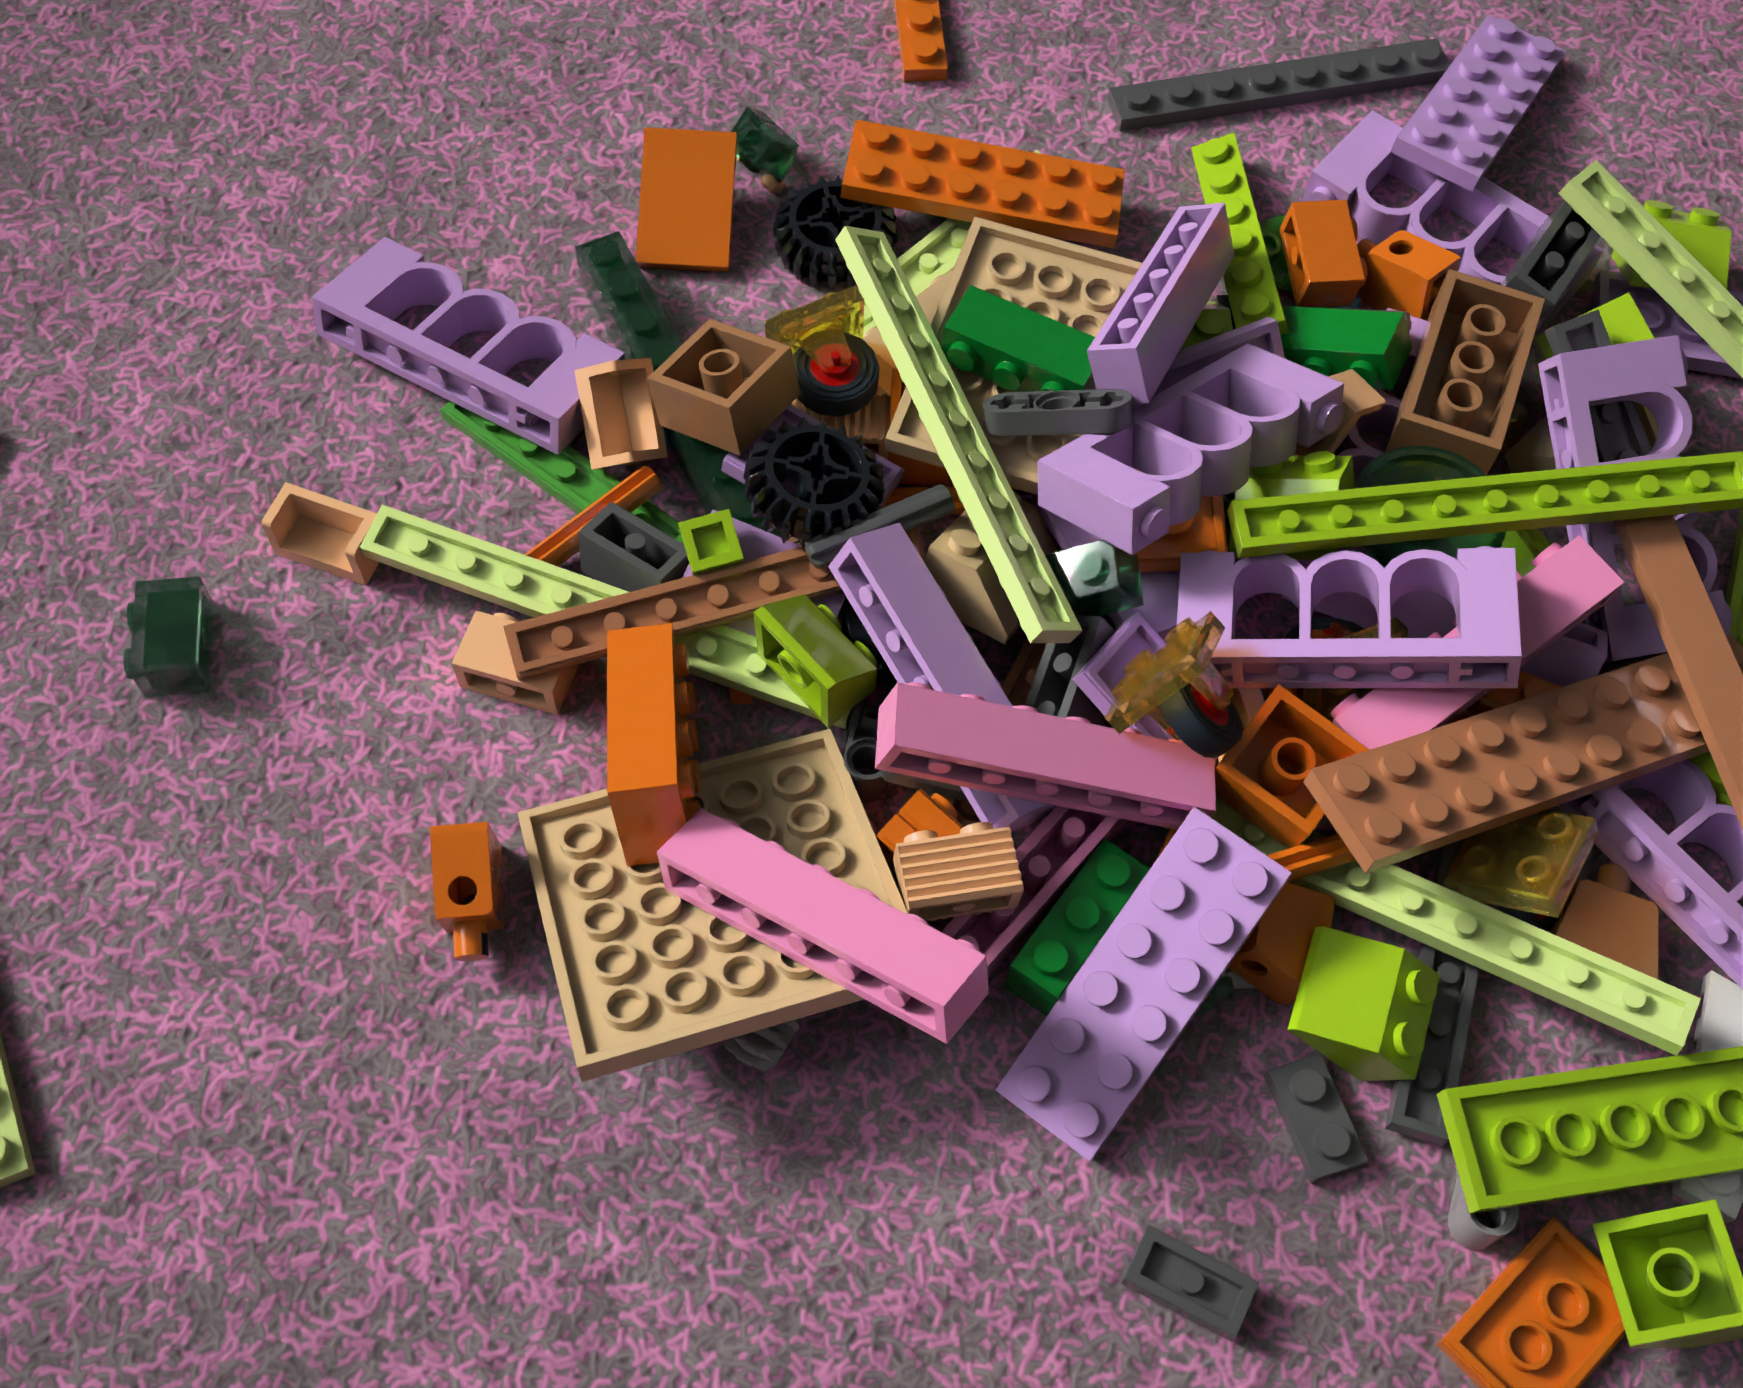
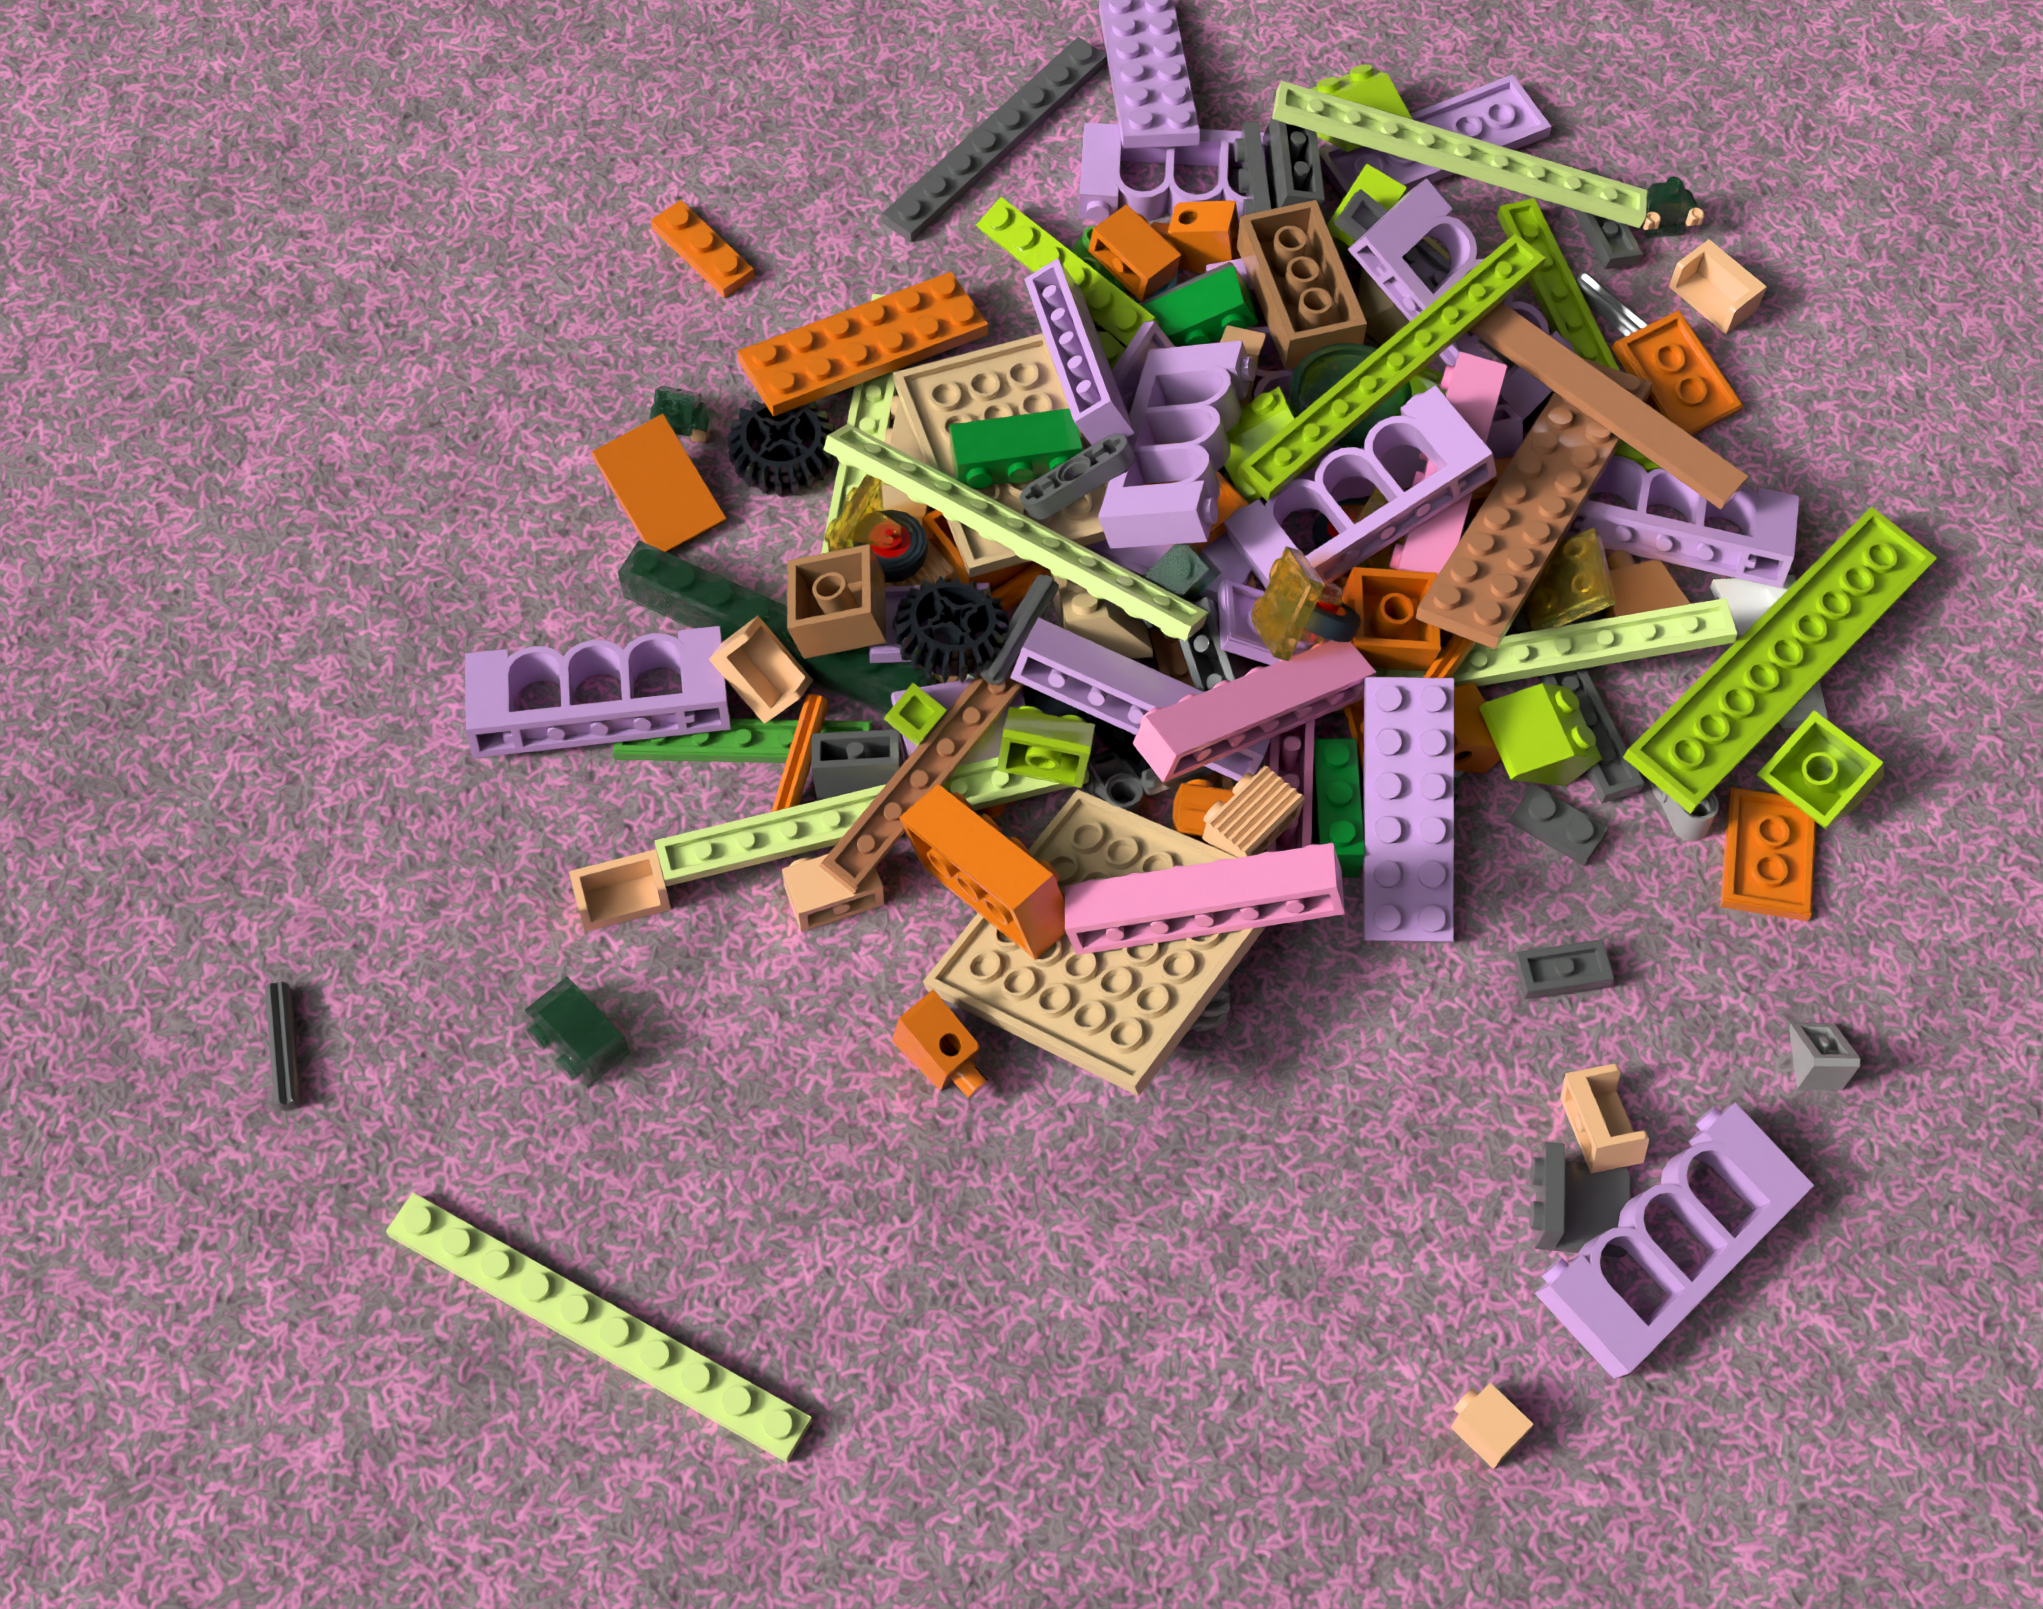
camera: 35 degrees left, 0 degrees up
(1501, 248) = (1253, 175): none -> dark grey plate

